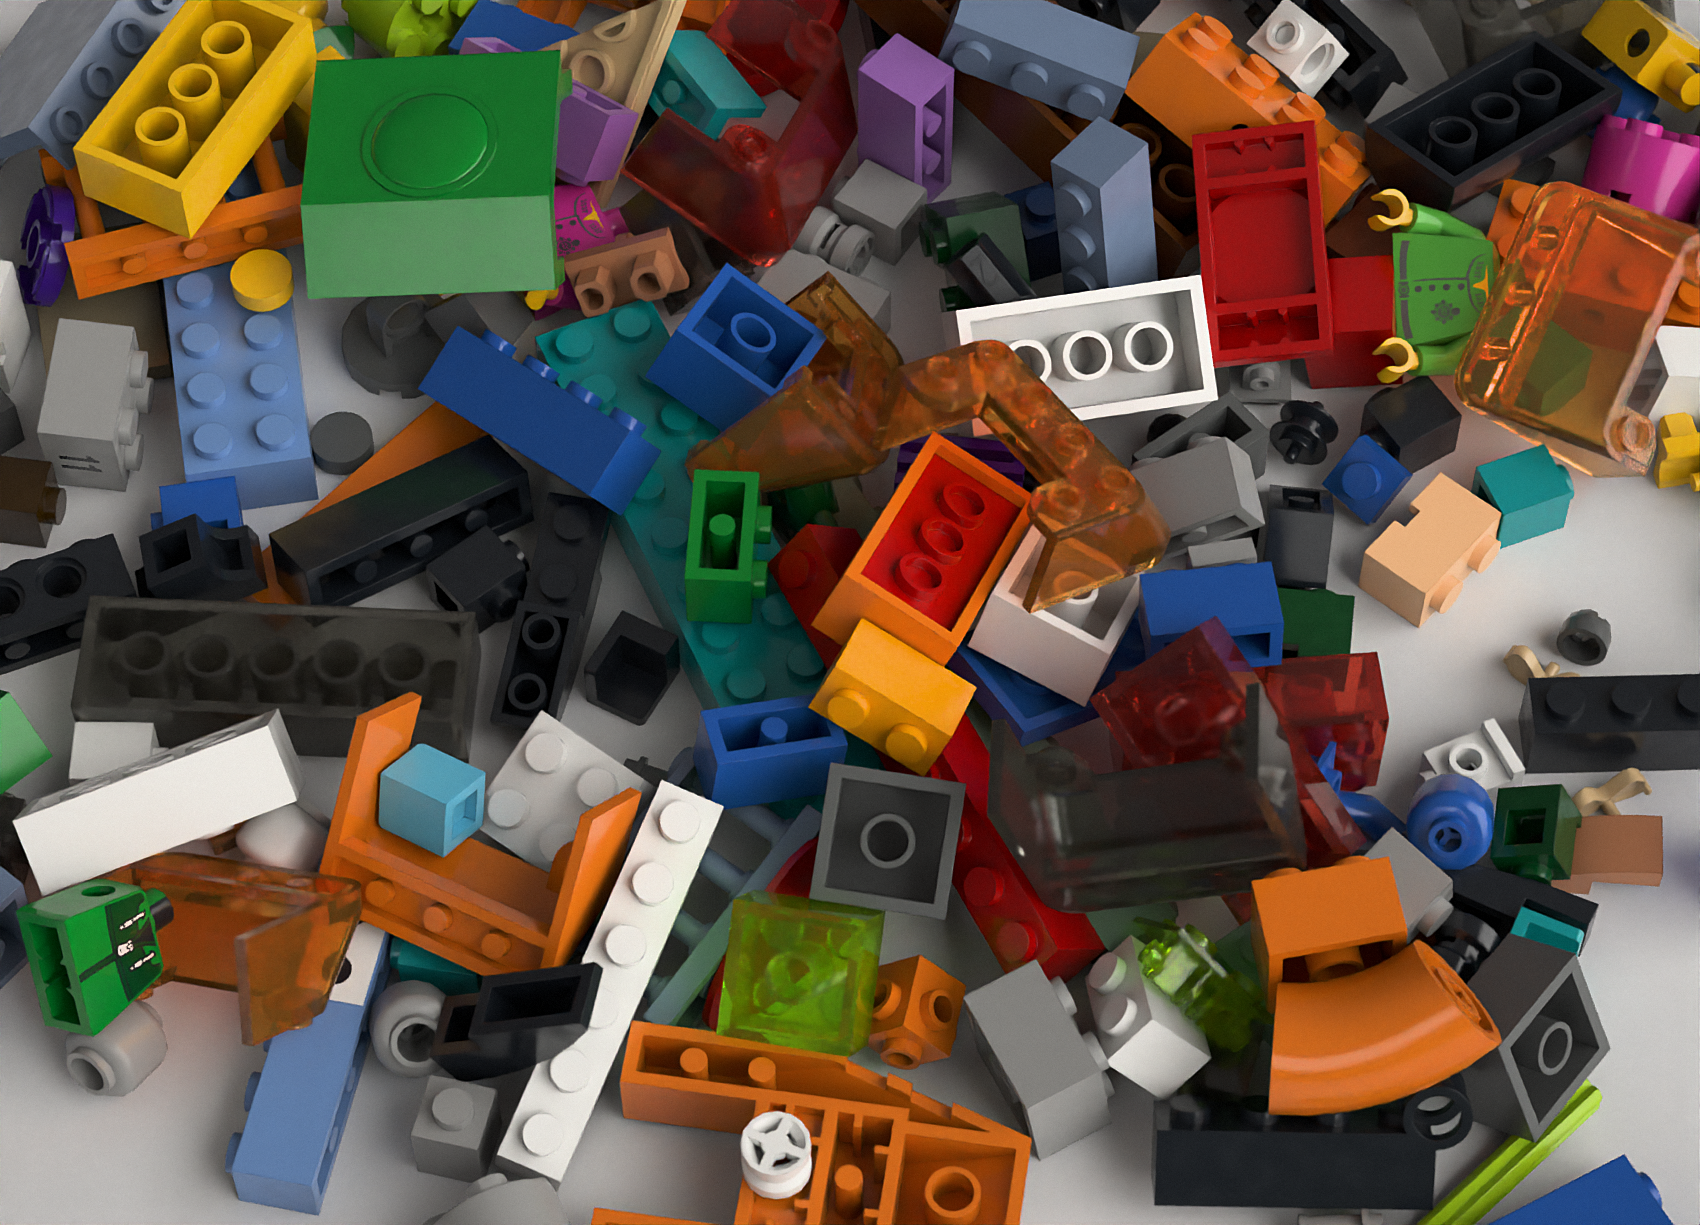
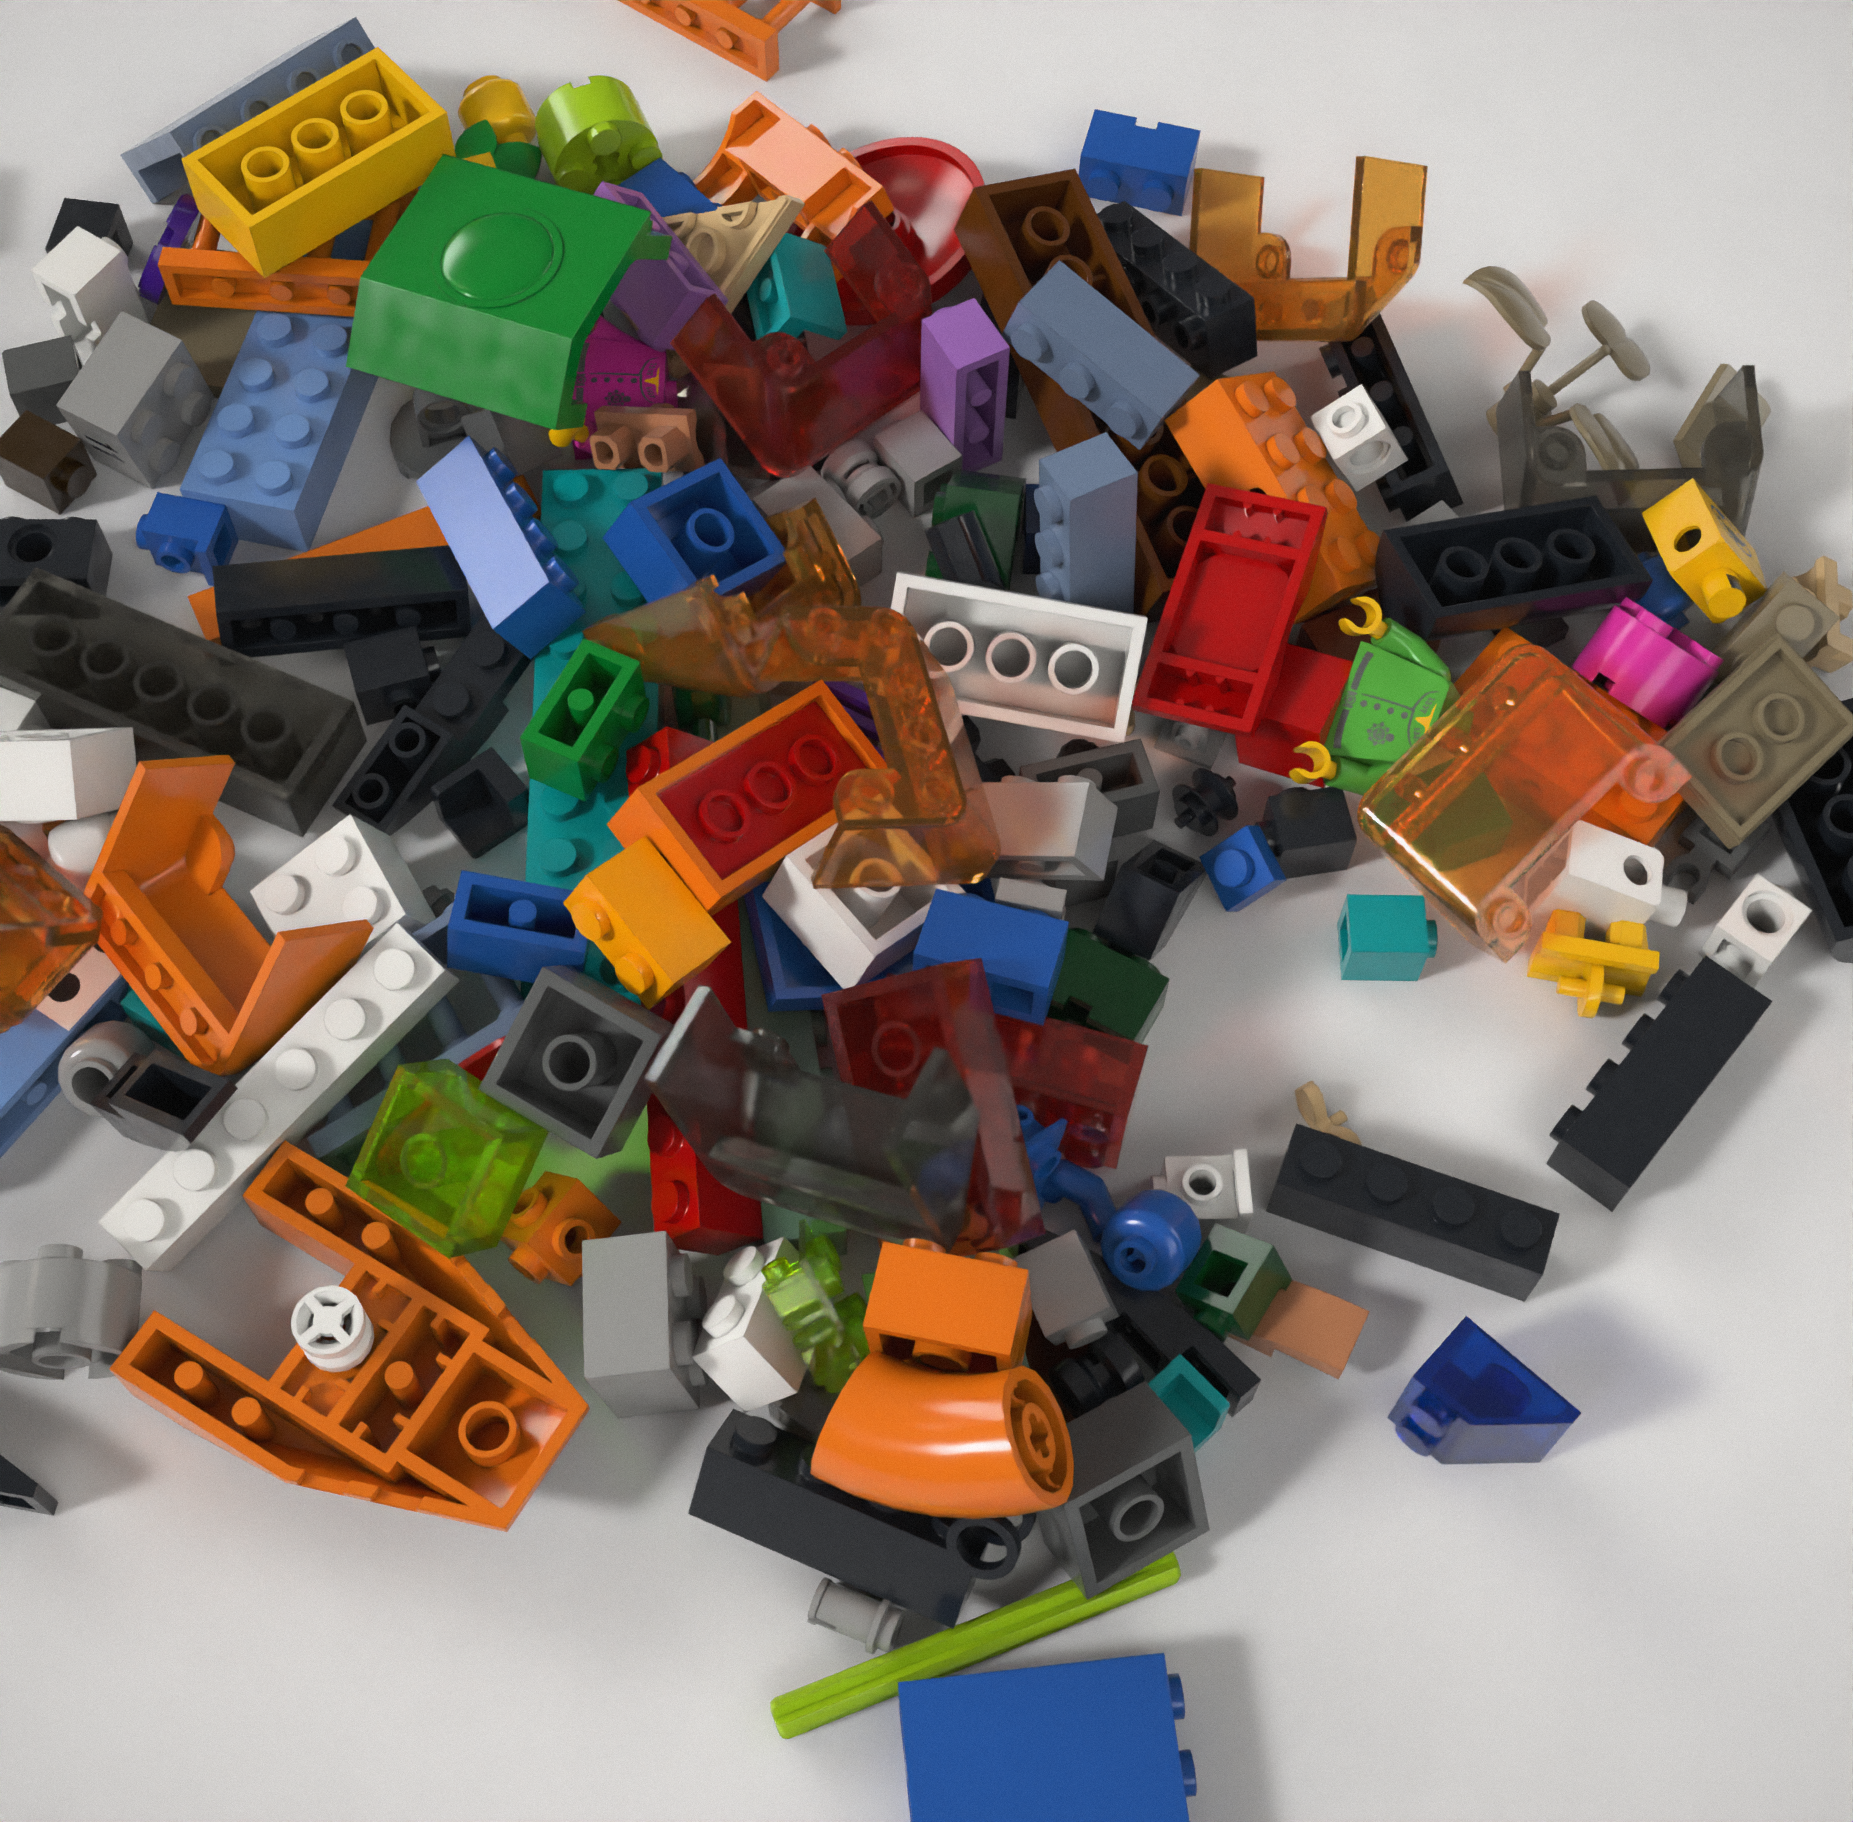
camera: 20 degrees right, 5 degrees up
(200, 562) = (154, 573): black brick -> none
(262, 280) = (325, 338): yellow tile -> none
(341, 442) = (348, 508): dark grey tile -> none
(431, 799) = (212, 861): medium azure panel -> none
(456, 1129) = (91, 1174): light grey brick -> none
(1426, 561) = (1265, 966): light nougat brick -> none
(1593, 644) = (1382, 1099): dark grey hinge -> none
(1620, 787) = (1351, 1261): tan piece -> none

